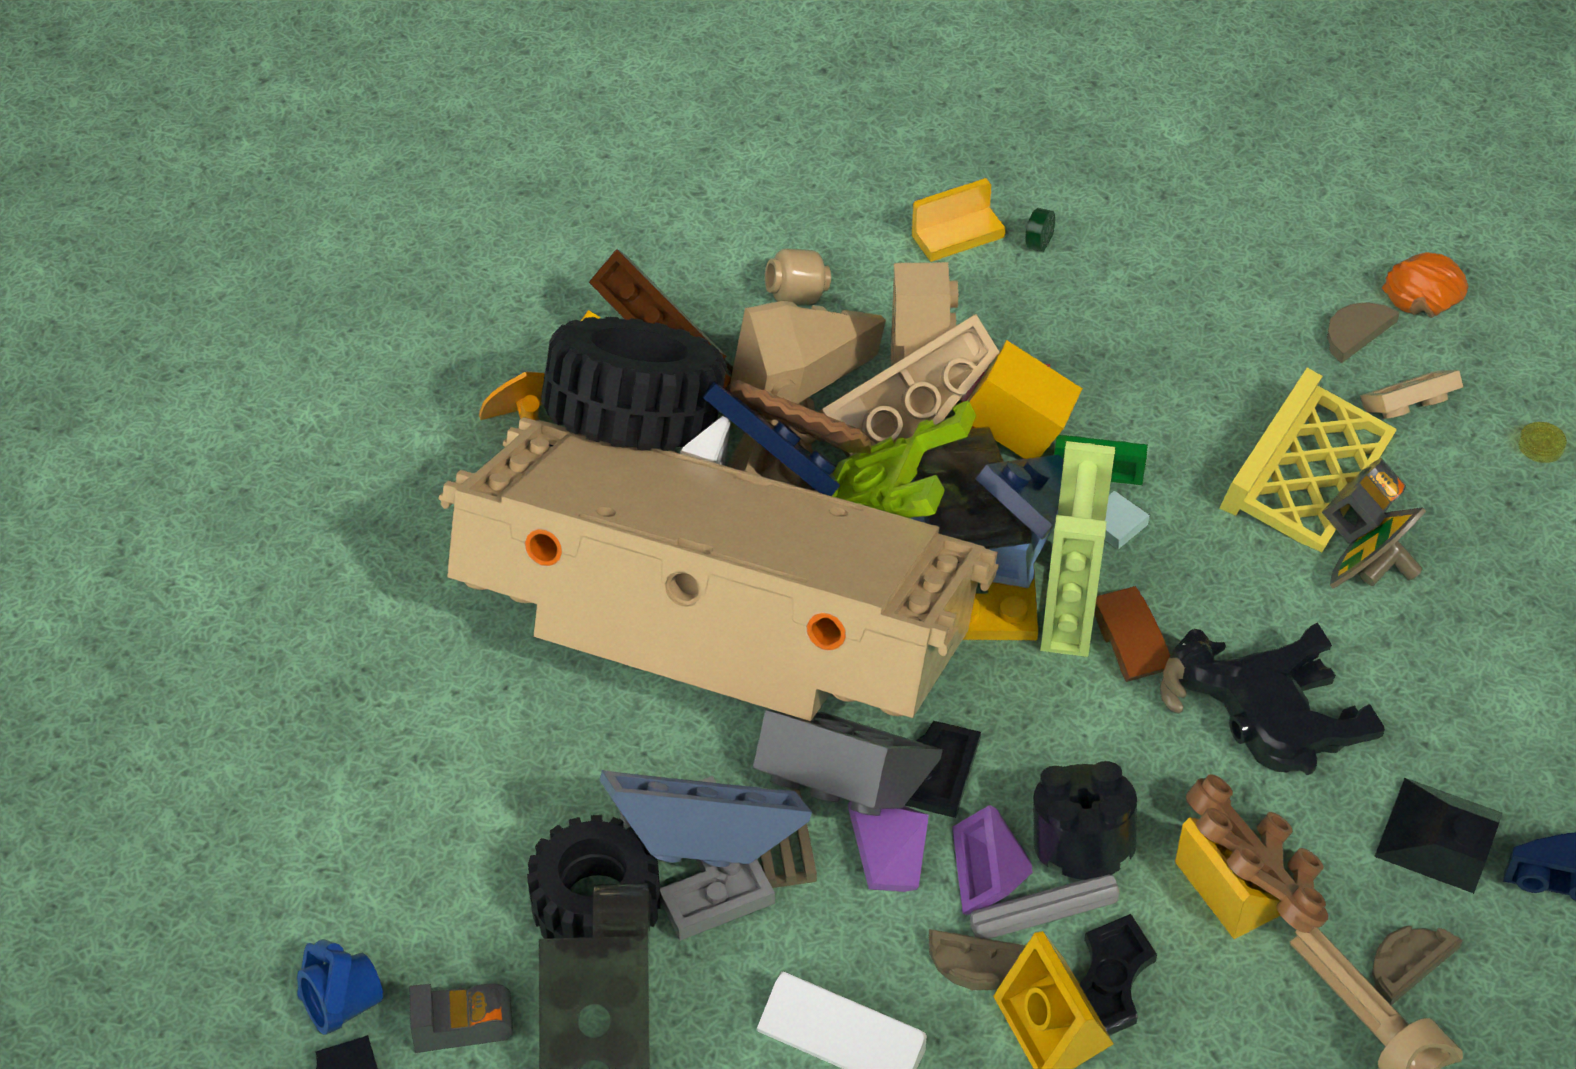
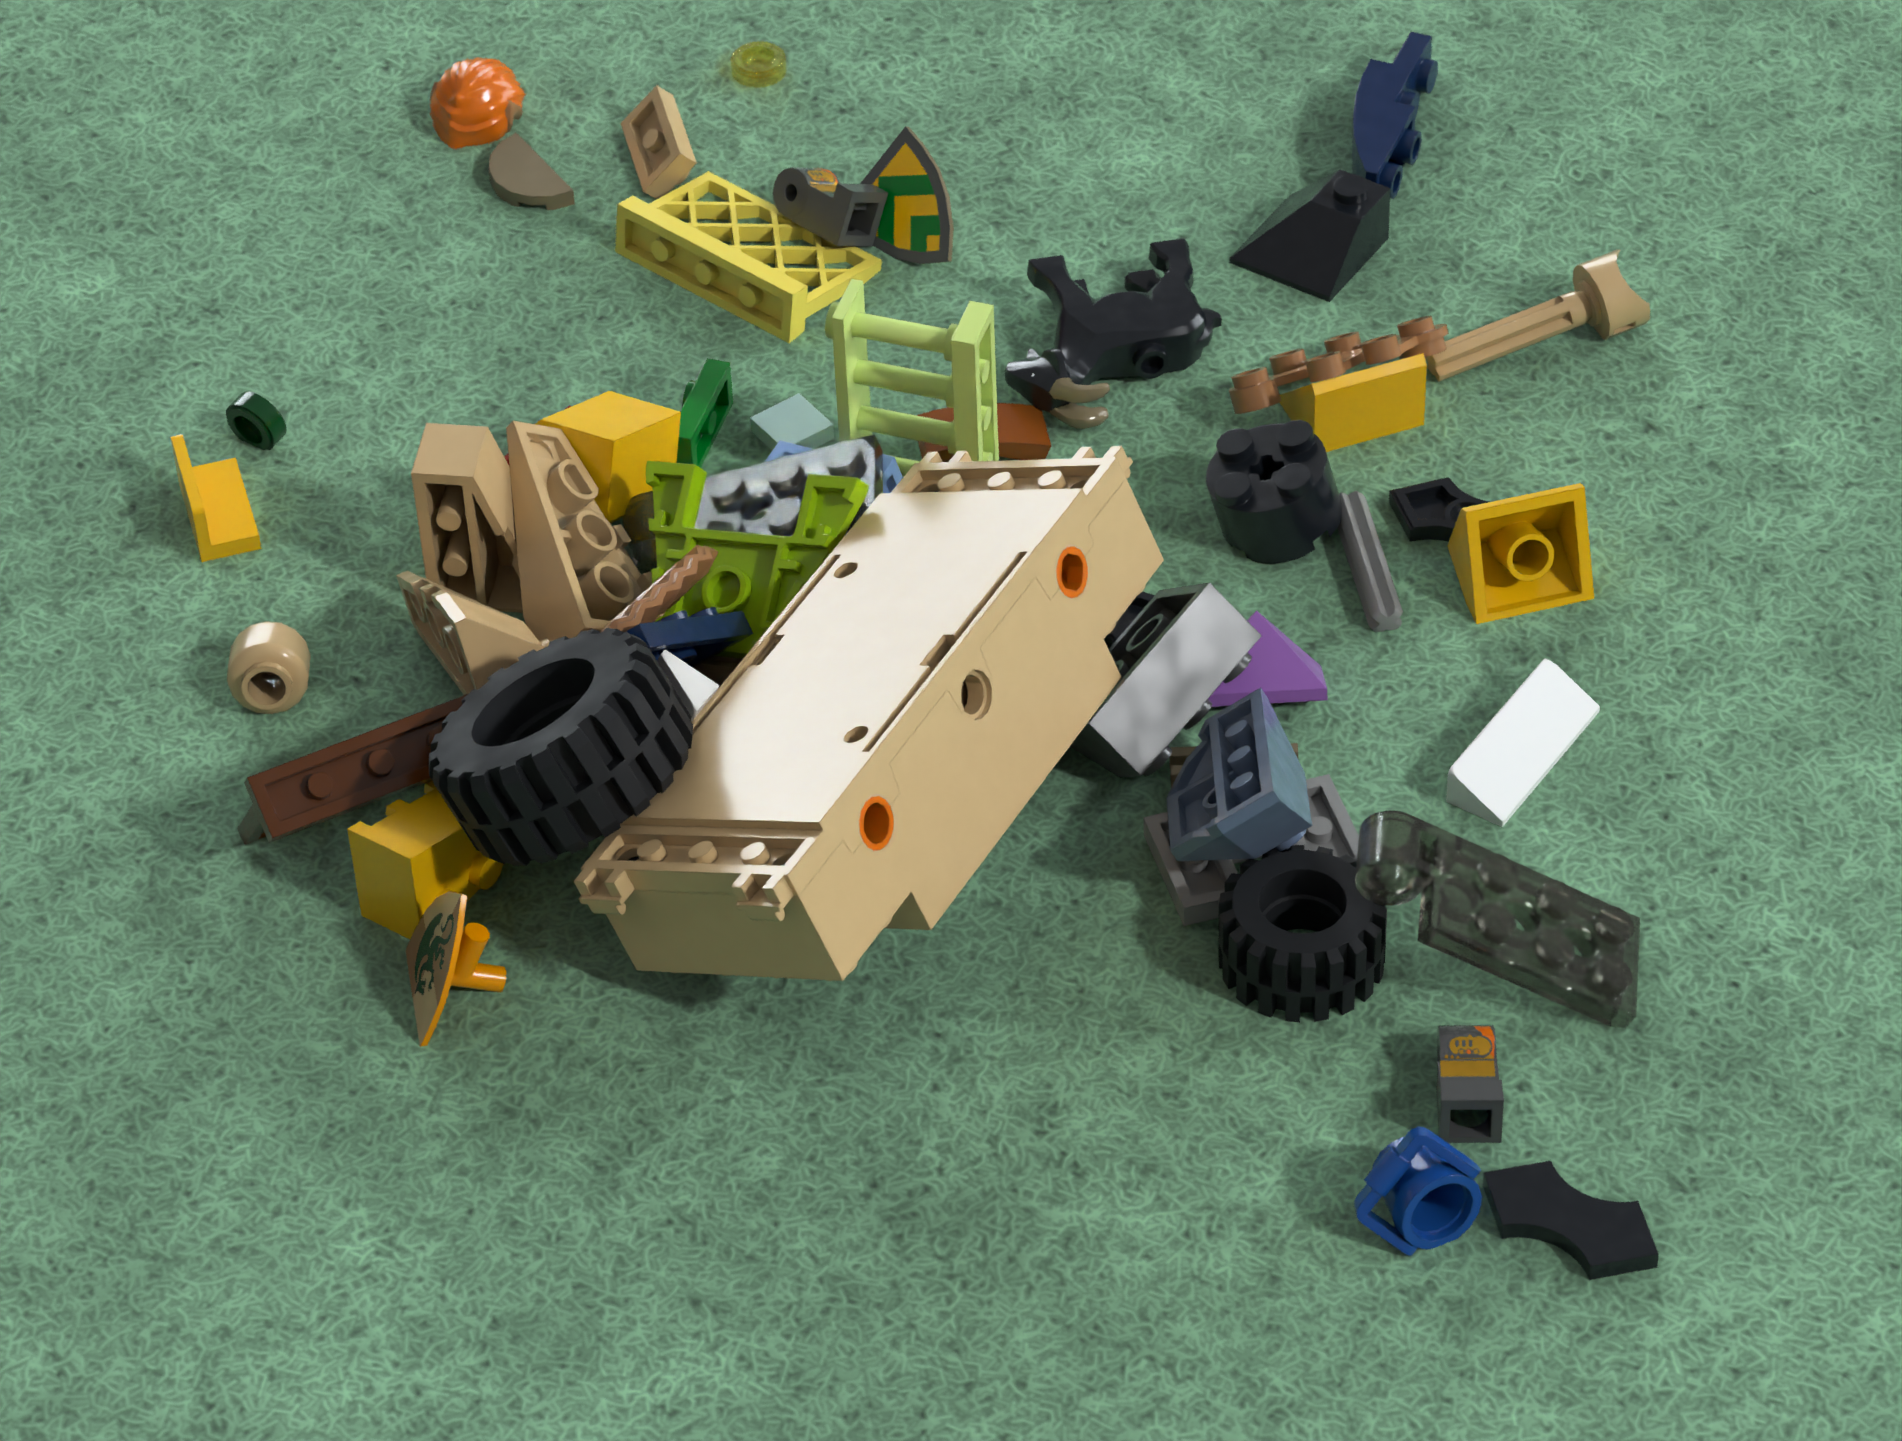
camera: 80 degrees left, 5 degrees down
(972, 960) = (1432, 628): dark tan tile -> none
(987, 859) = (1304, 599): medium lavender slope -> none
(1027, 489) = (797, 434): wing -> none
(1409, 957) = (1468, 294): dark tan tile -> none

